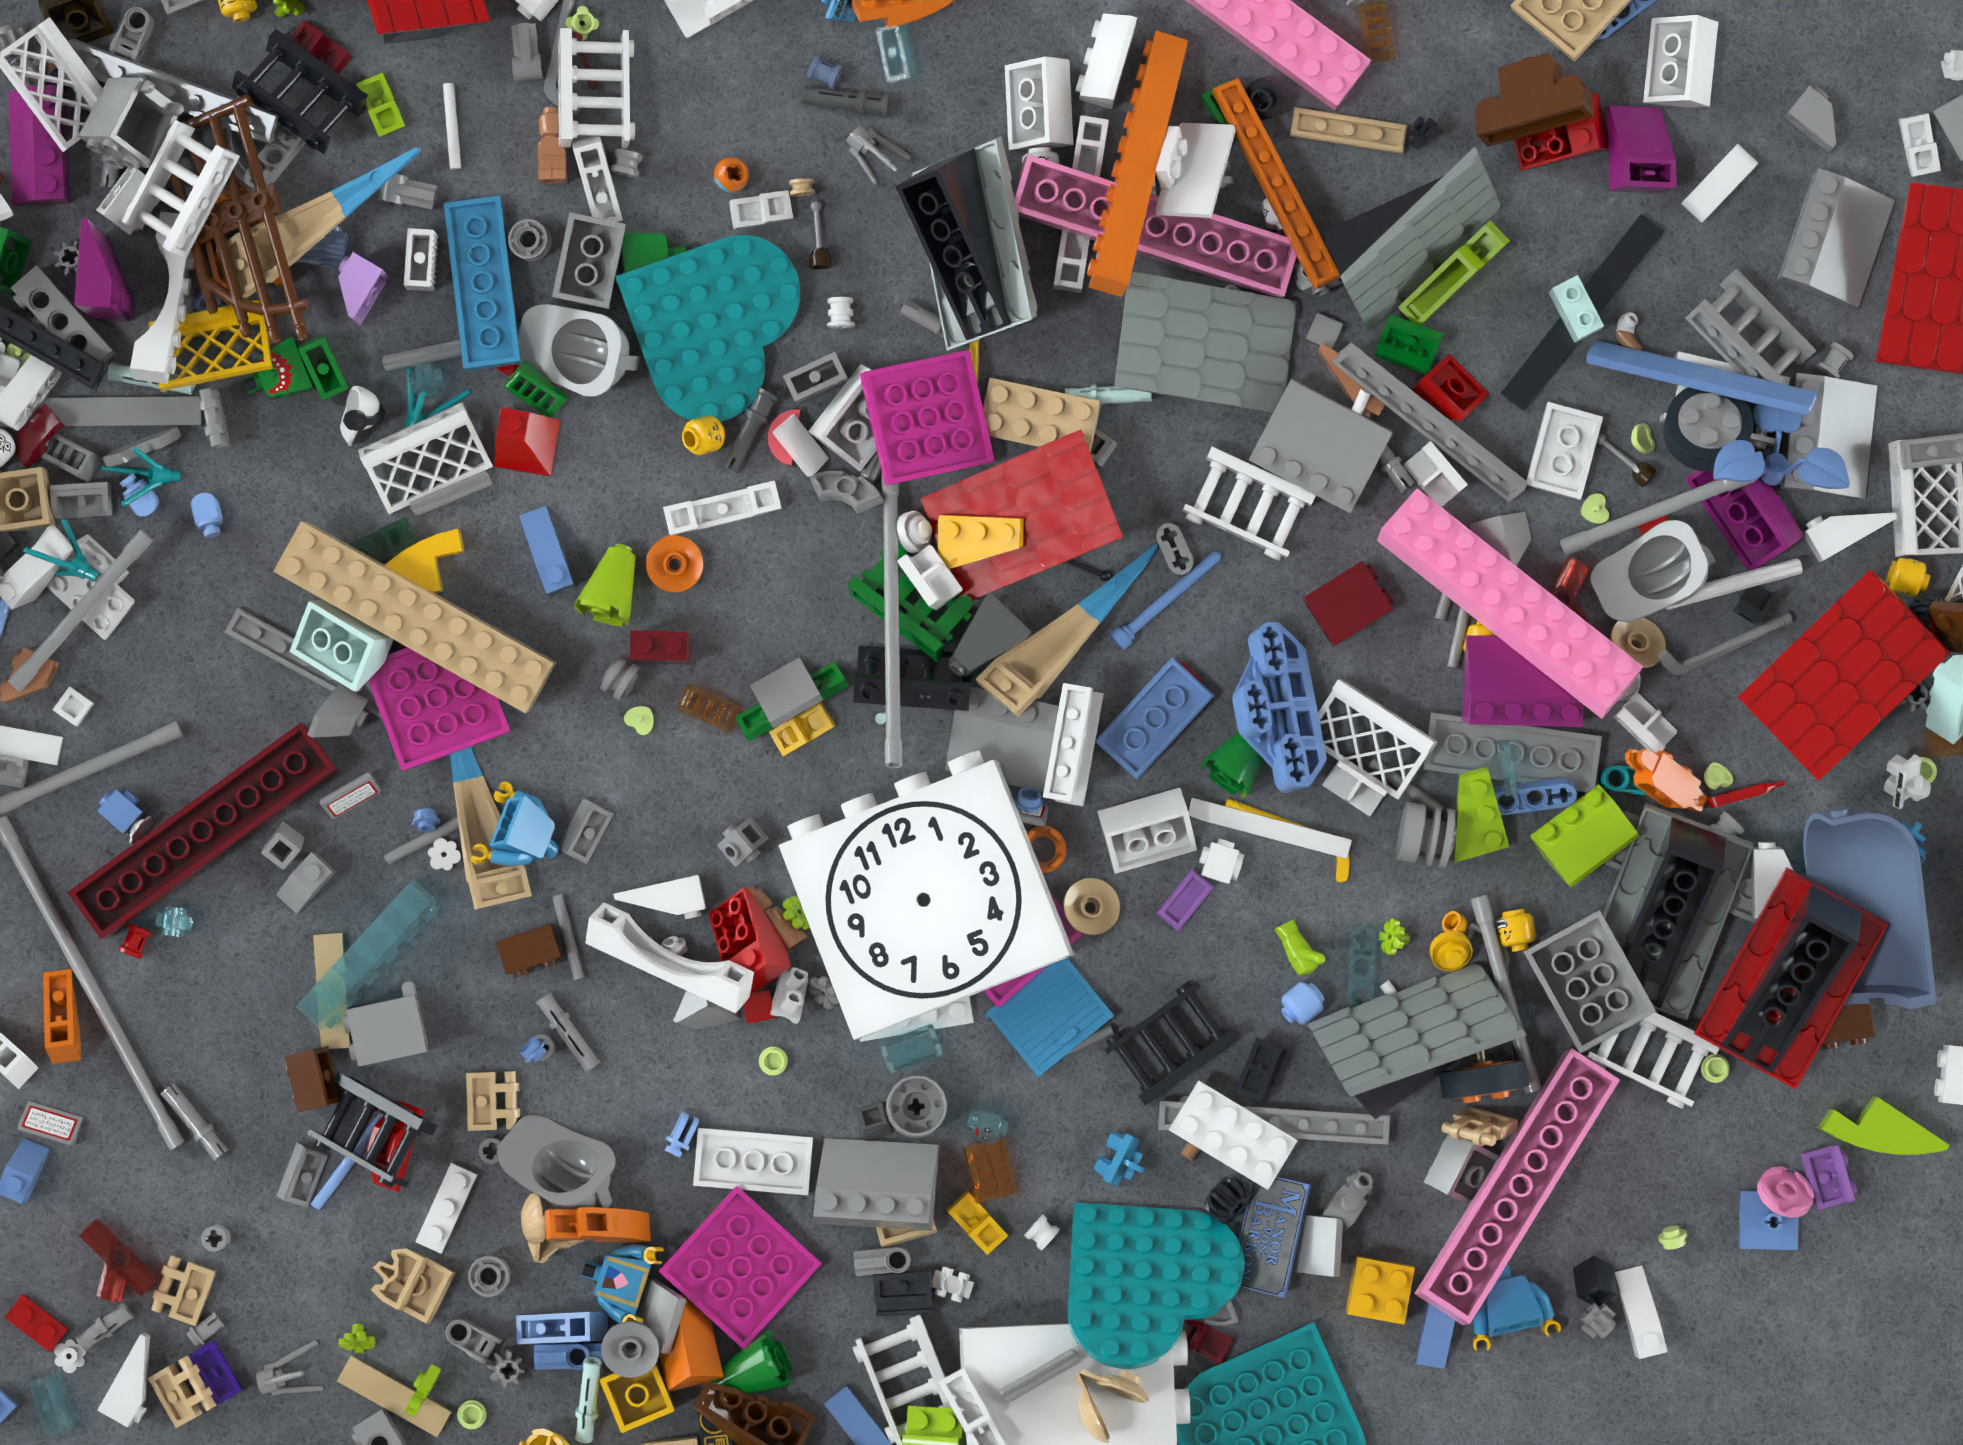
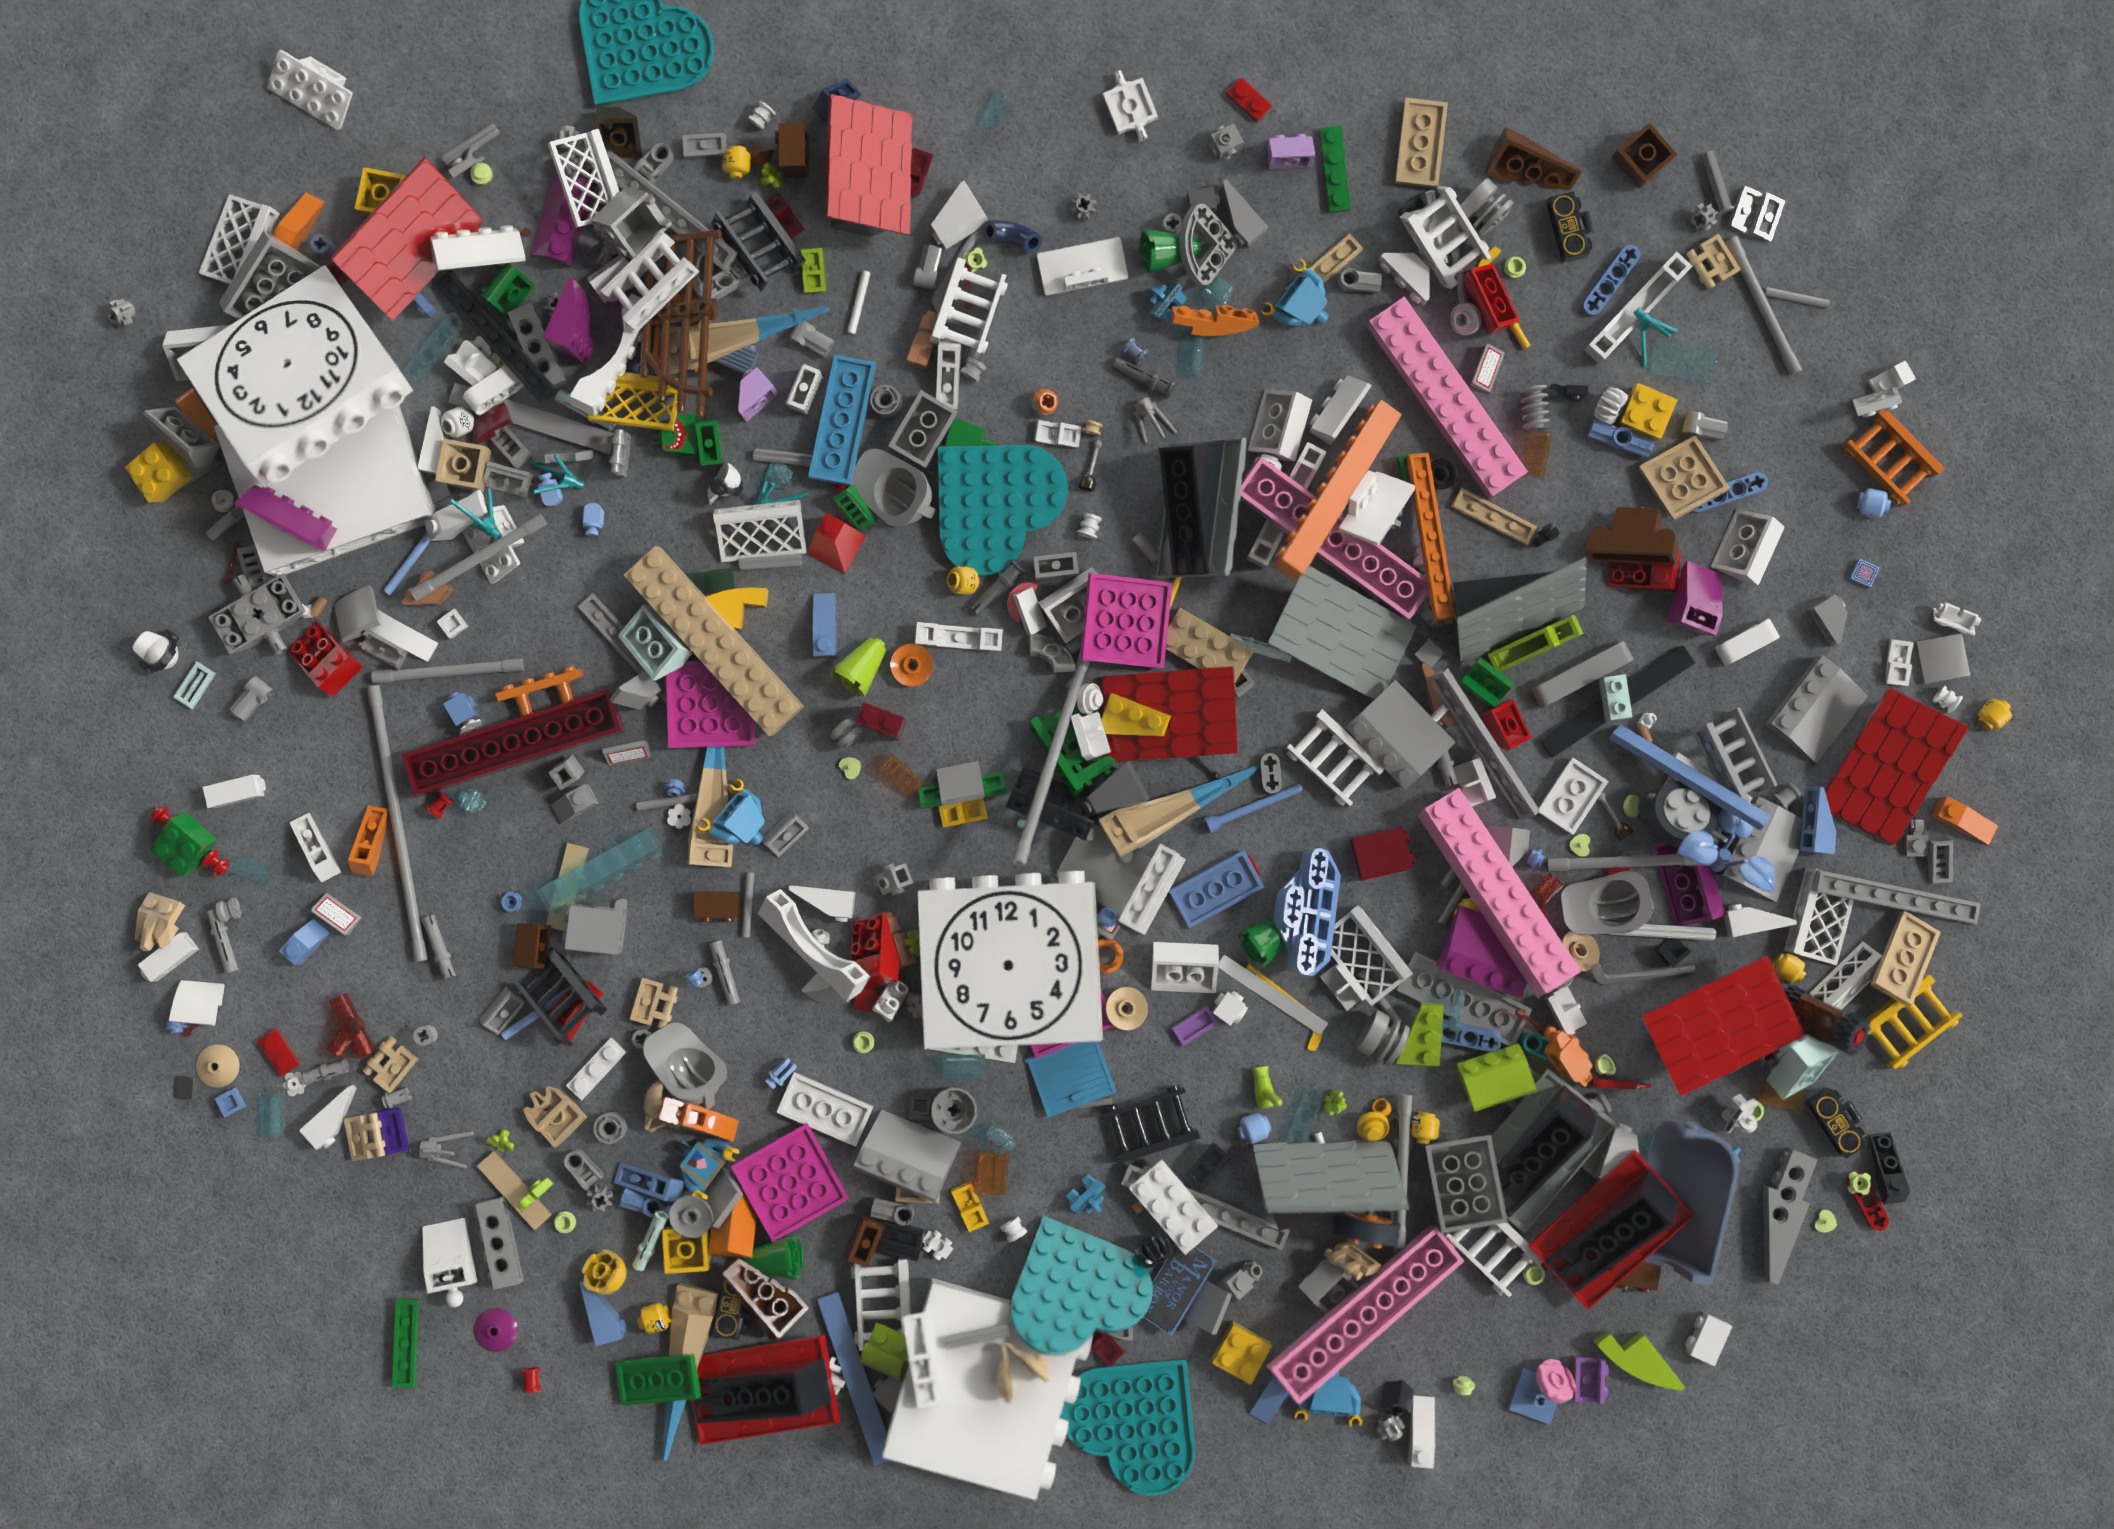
camera: 20 degrees right, 0 degrees up
(191, 764) = (521, 693): none -> orange plate
(275, 1034) = (505, 902): none -> medium blue plate
(858, 1308) = (864, 1240): none -> reddish brown brick
(1525, 293) = (1582, 674): none -> light grey beam
(1544, 545) = (1536, 858): none -> medium blue plate
(1587, 744) = (1520, 1012): none -> clear red hinge
(1839, 46) = (1864, 573): none -> light blue tile
(1884, 385) = (1818, 828): none -> medium blue slope

